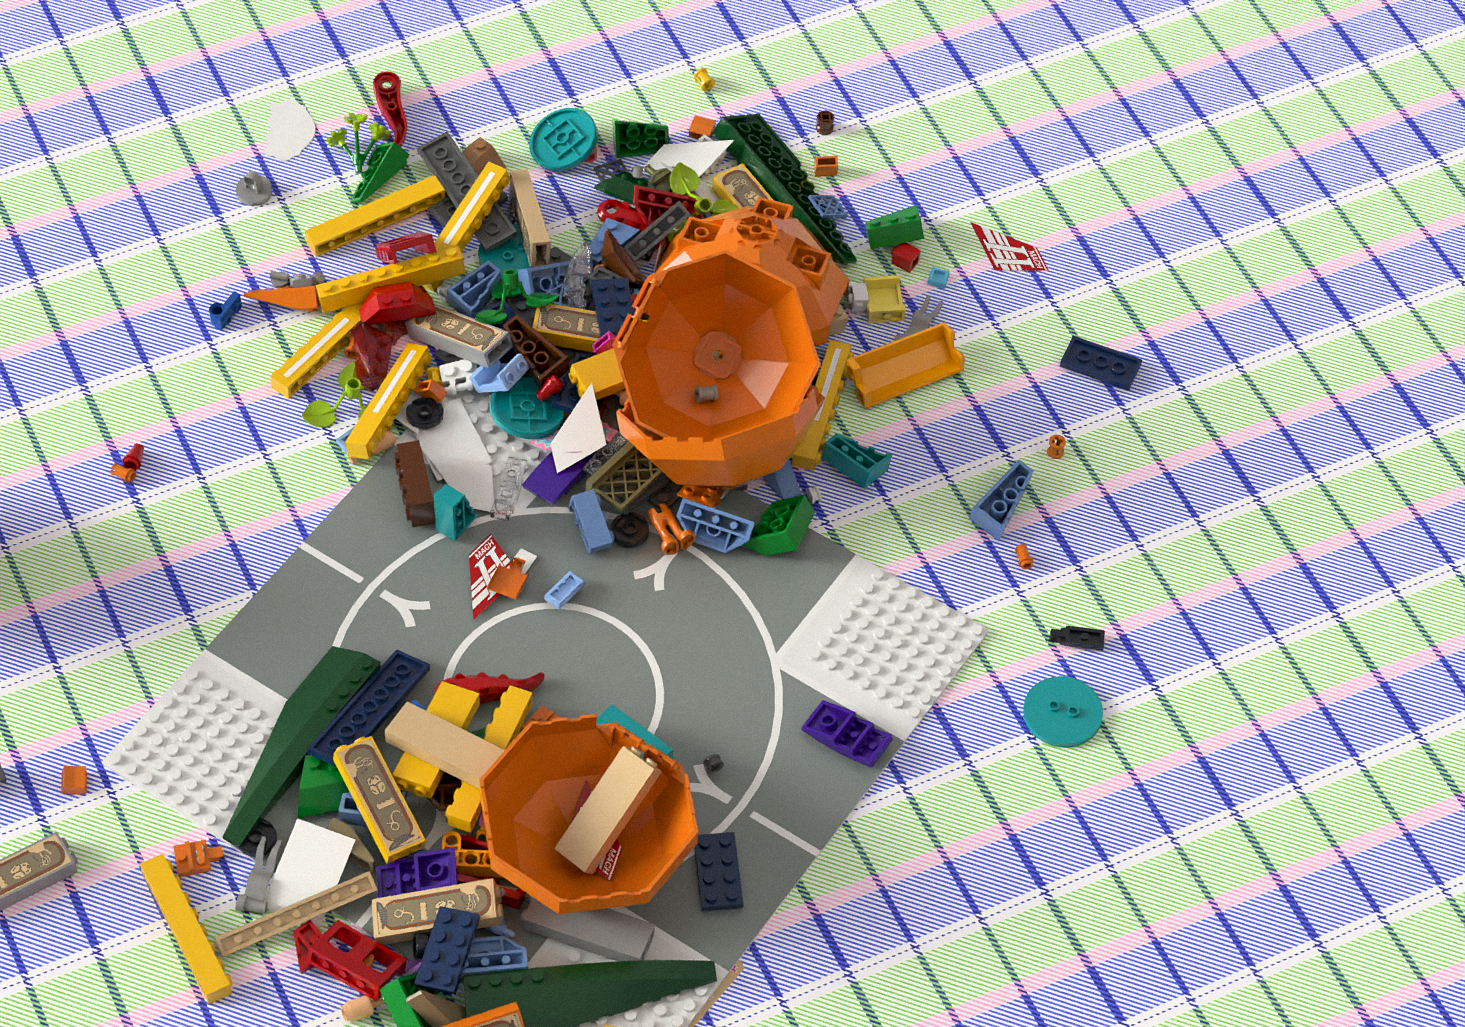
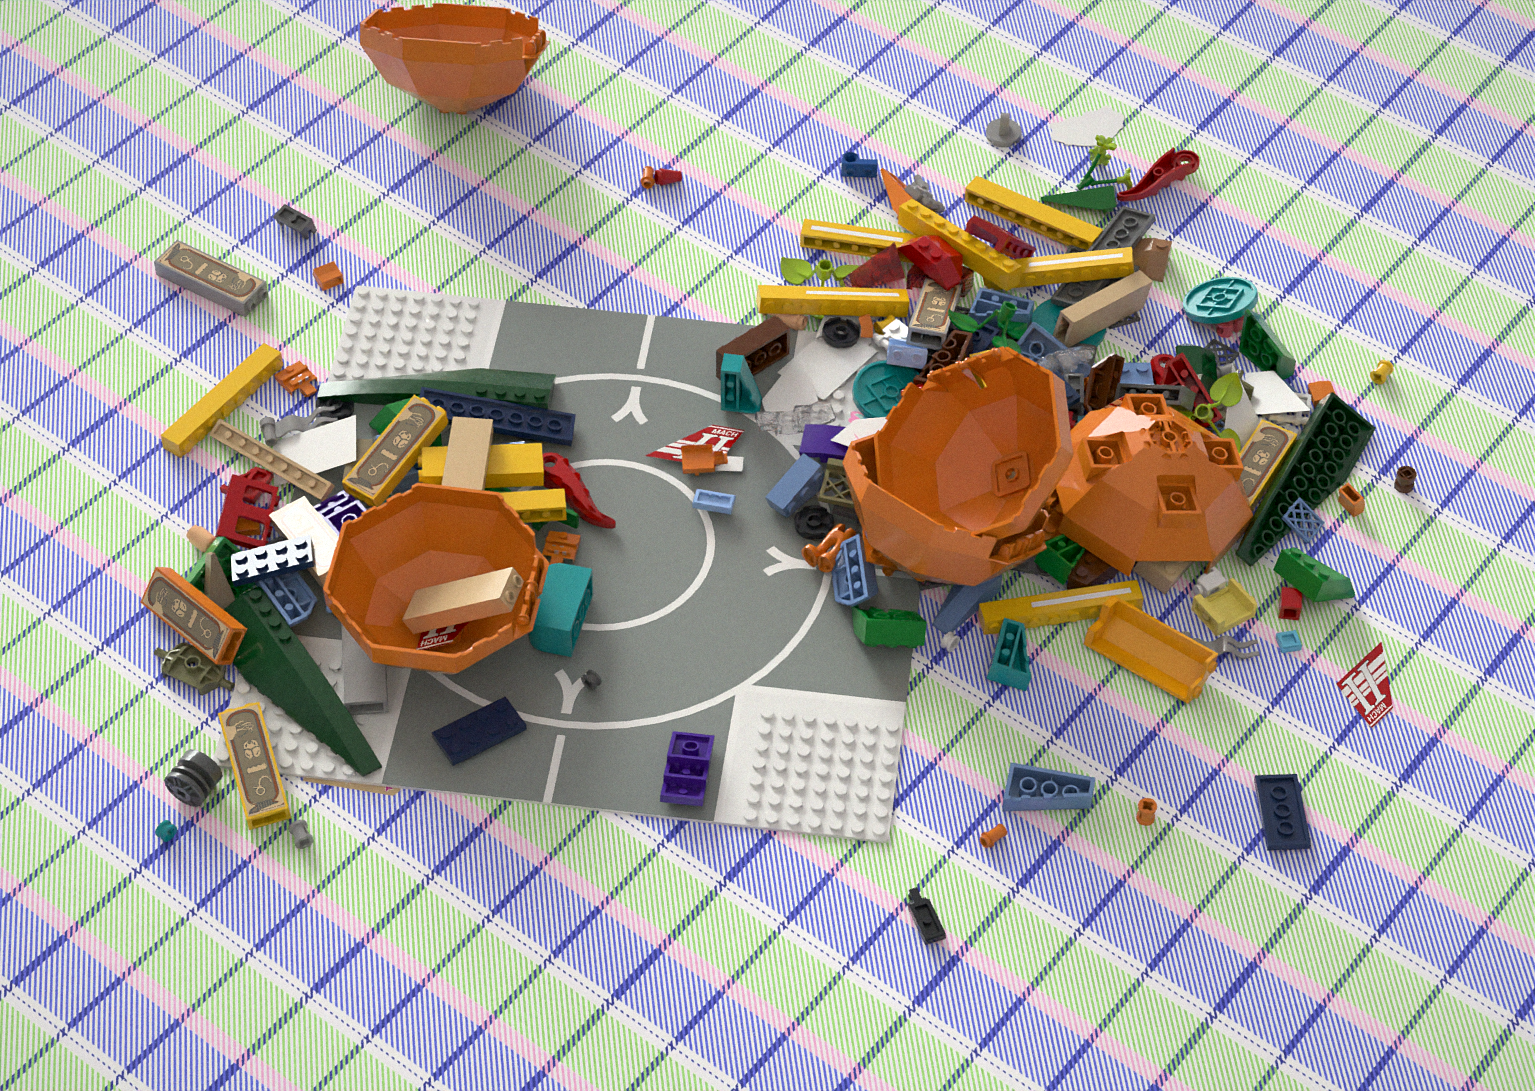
camera: 65 degrees right, 5 degrees down
(706, 393) = (965, 487): light grey bush -> none
(1063, 711) = (828, 938): teal plate -> none

